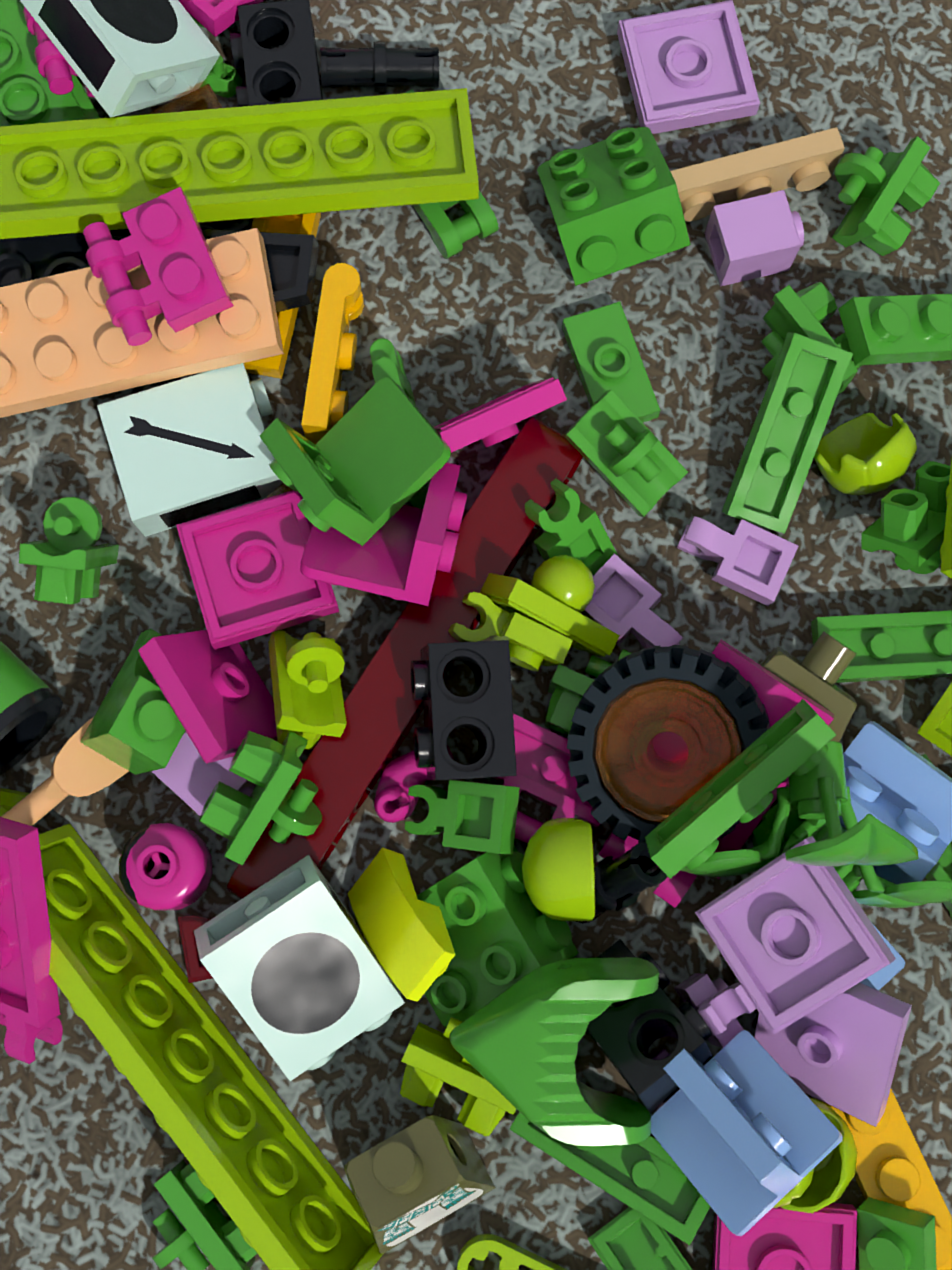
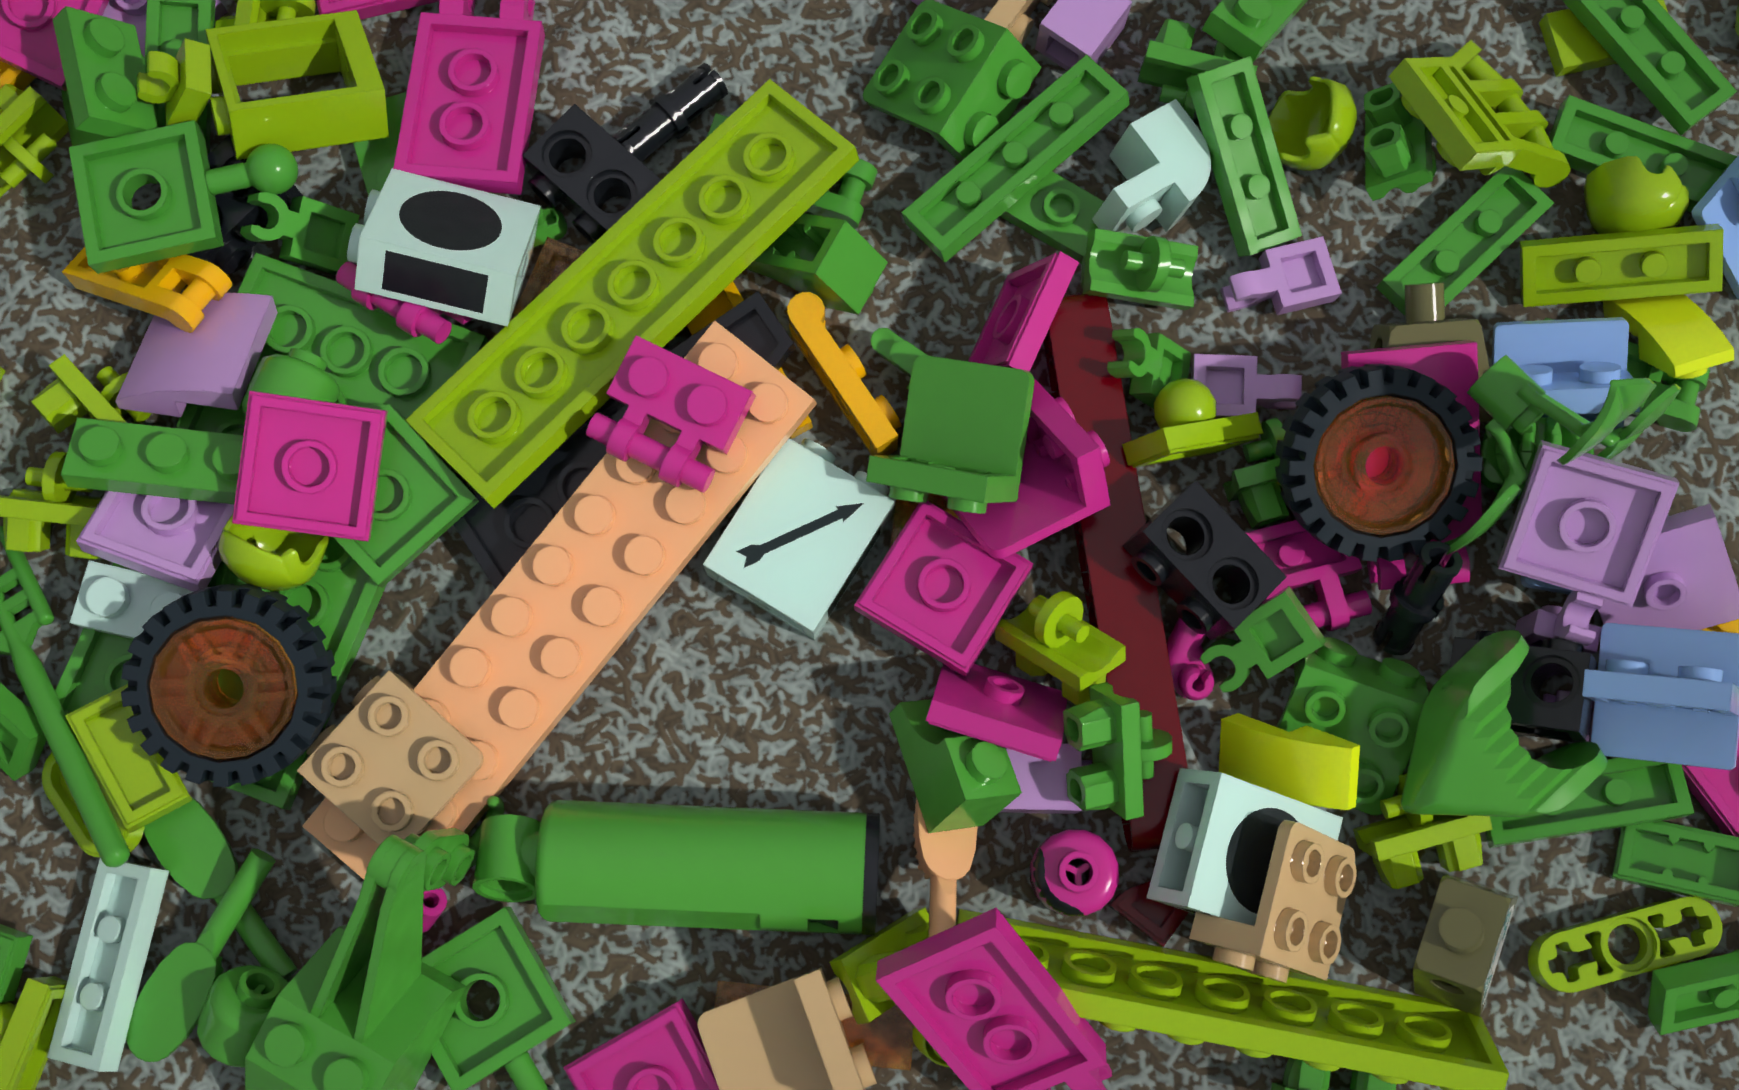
camera: 40 degrees left, 0 degrees up
(68, 559) = (785, 695): bright green hips -> none
(293, 1037) = (1296, 912): none -> tan bracket
(390, 258) = (824, 259): none -> bright green arch
(528, 641) = (1172, 476): lime plate -> none
(561, 870) = (1377, 618): lime hair -> none
(607, 295) = (1016, 158): none -> bright green plate
(718, 394) = (1164, 171): none -> light aqua brick
(739, 790) = (1469, 446): bright green plate -> none

